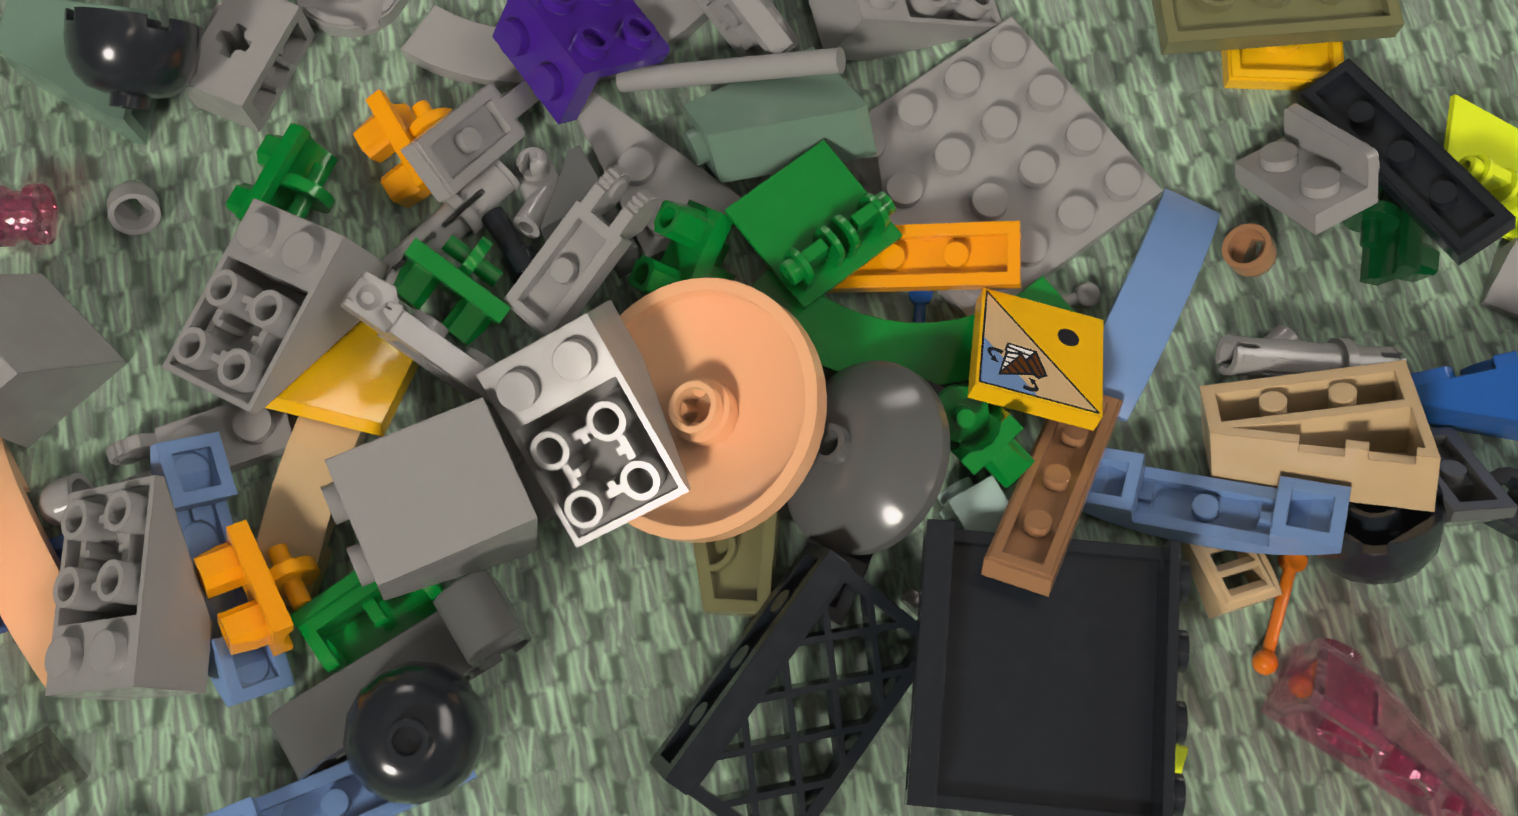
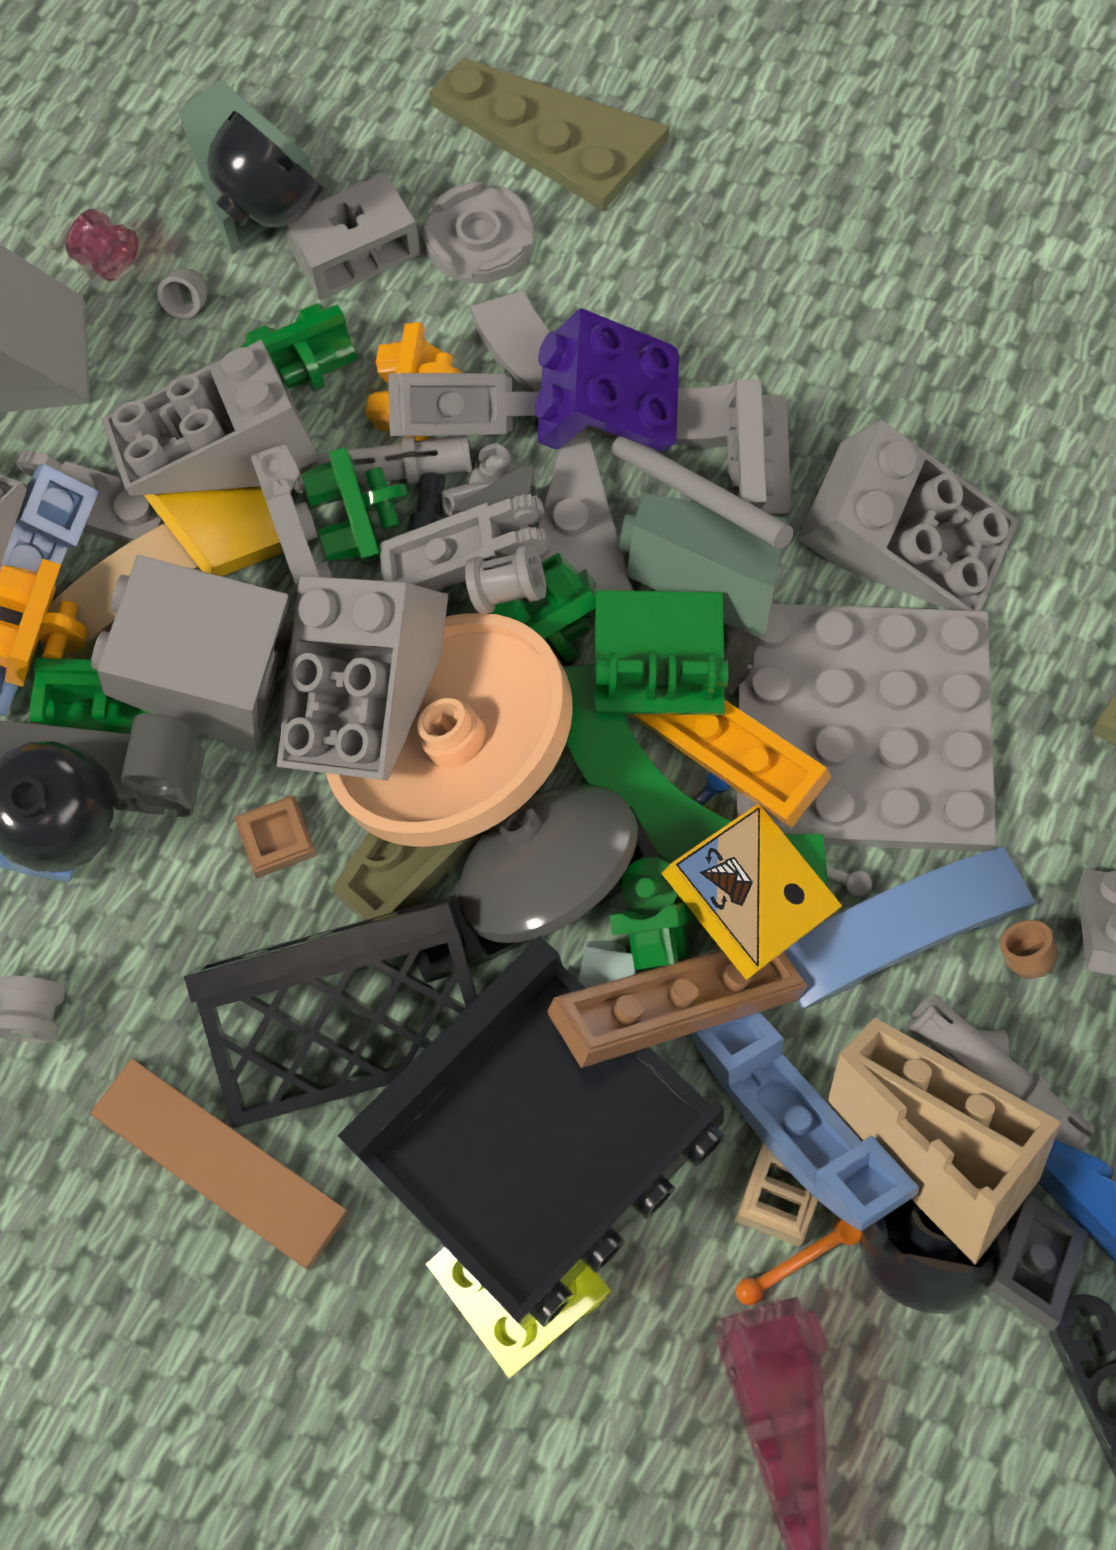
camera: 45 degrees right, 5 degrees down
(614, 604) = (275, 836): none -> medium nougat tile
(650, 252) = (505, 579): none -> light grey bush

